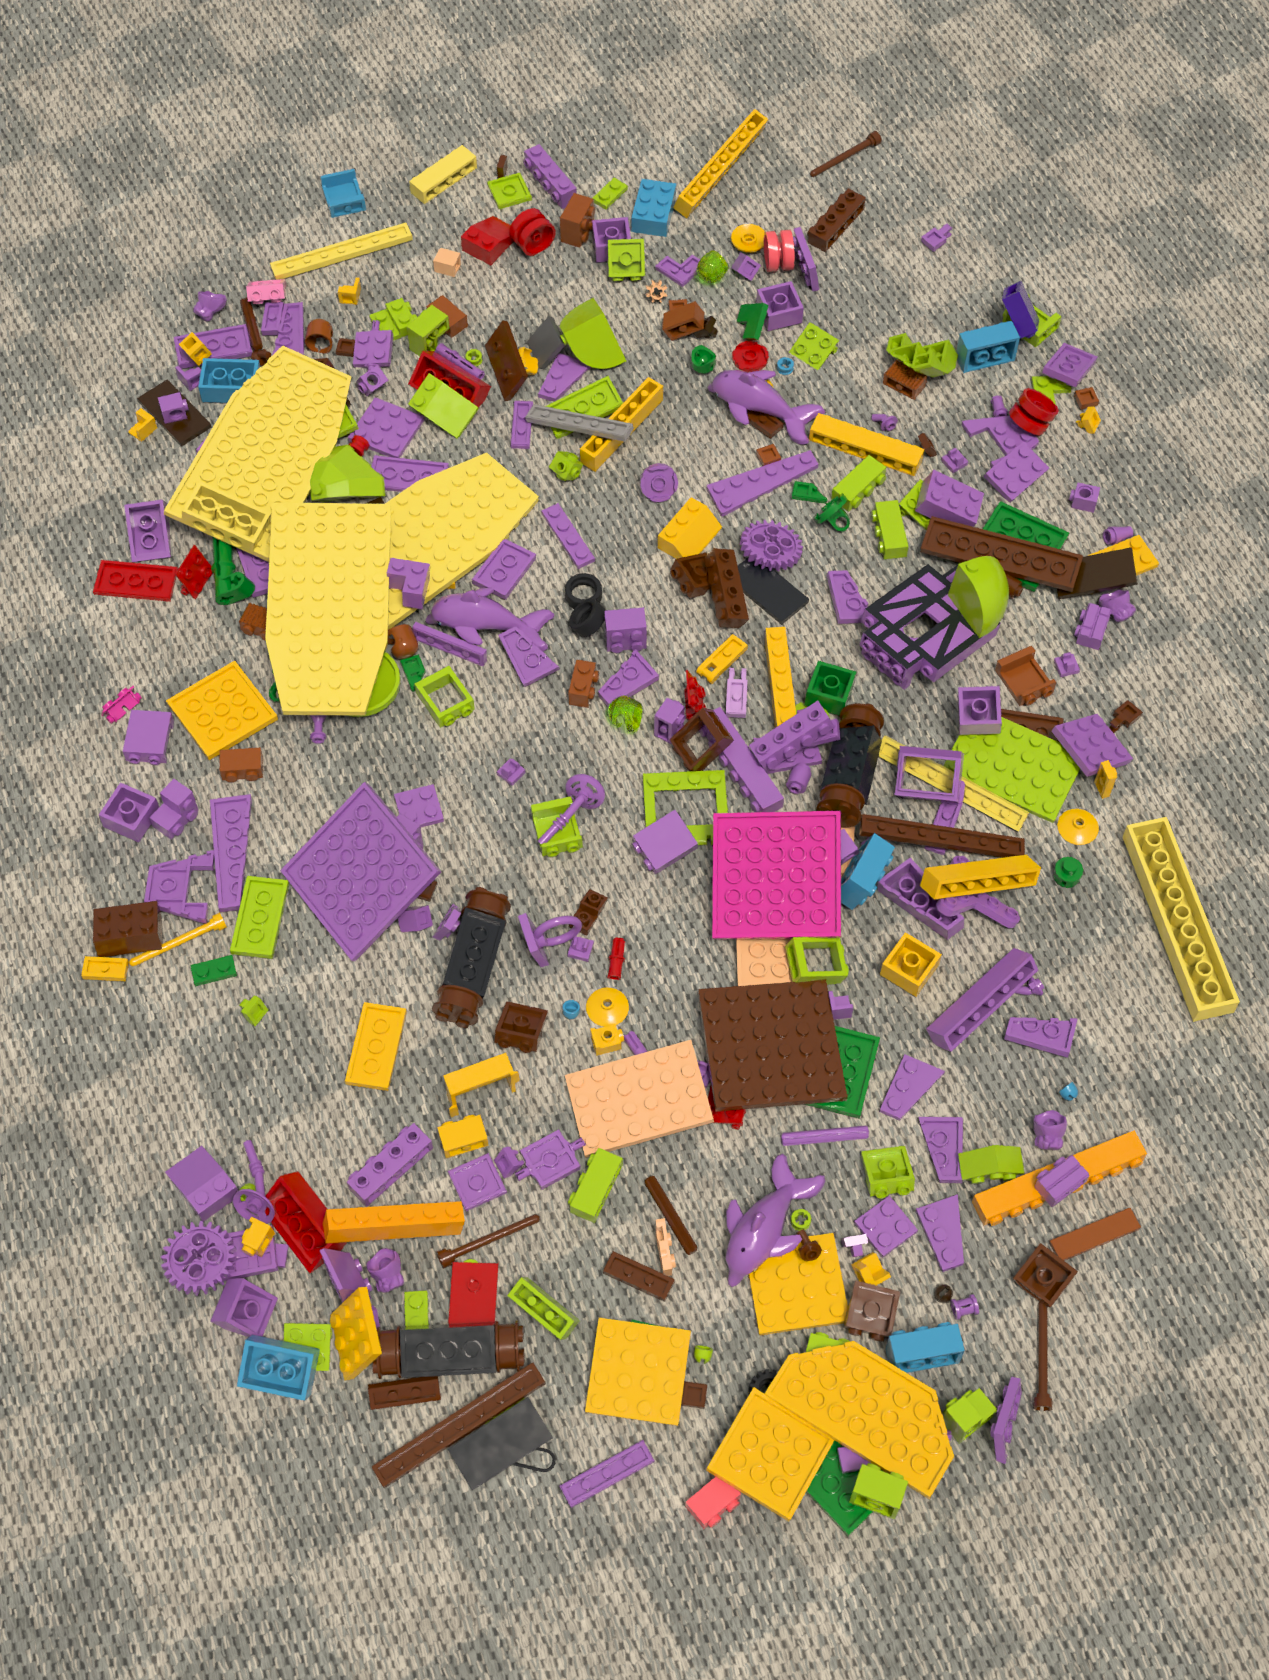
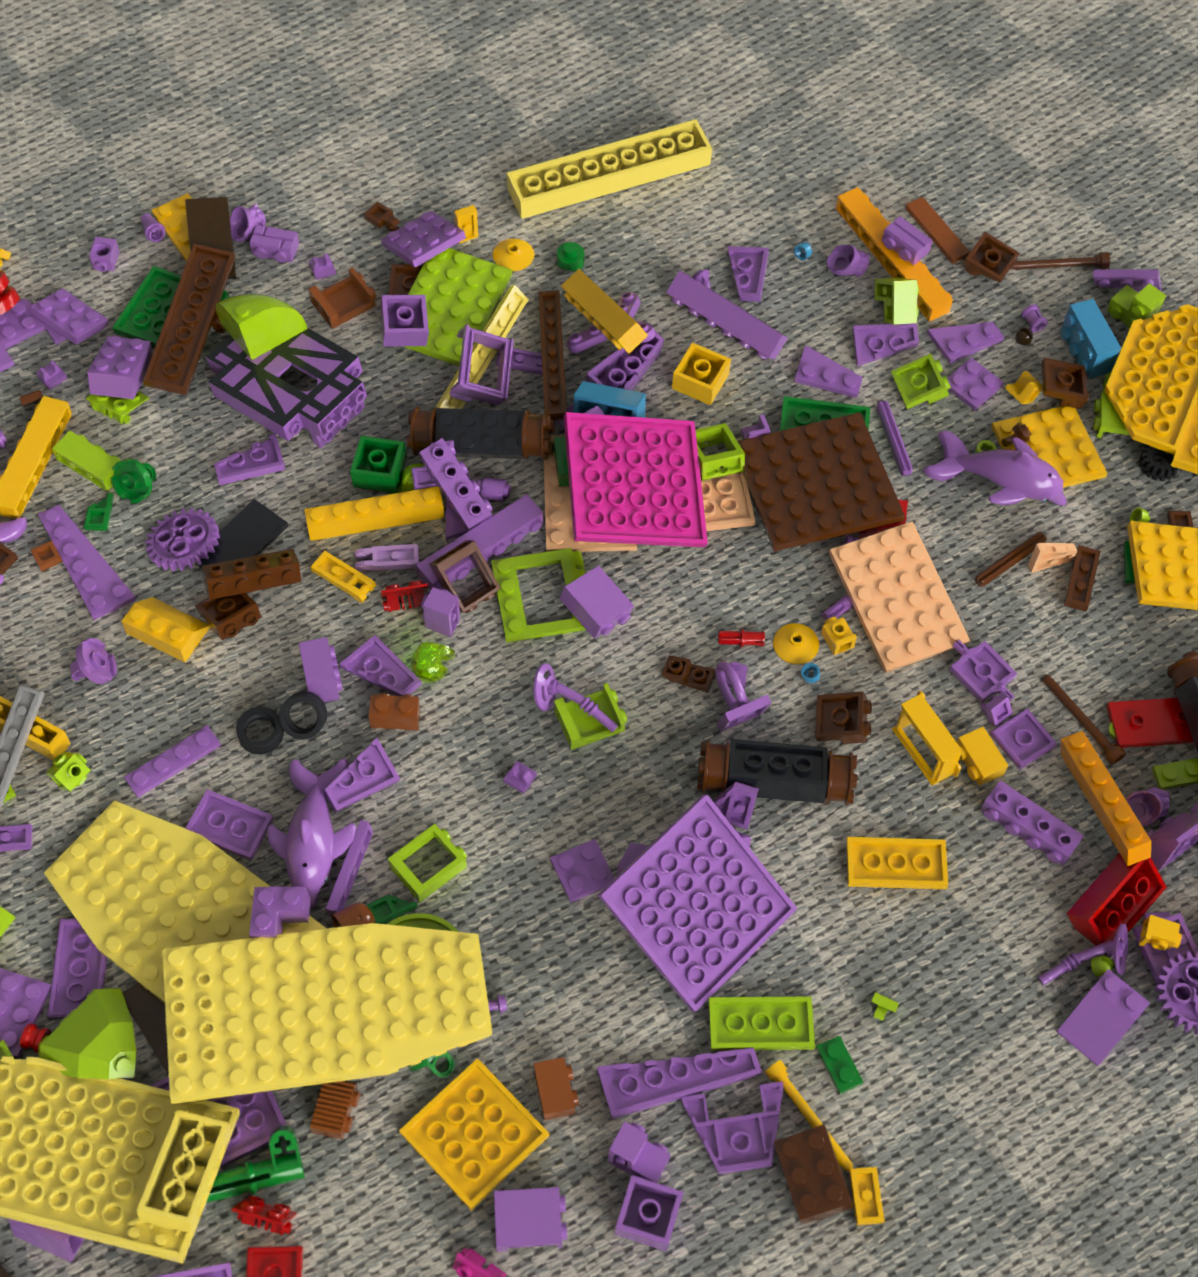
camera: 100 degrees left, 0 degrees up
(543, 1308) = (1144, 651): lime brick -> none
(595, 1185) = (1001, 624): lime brick -> none
(855, 1244) = (998, 403): tile -> none
(889, 529) = (154, 426): lime brick -> none

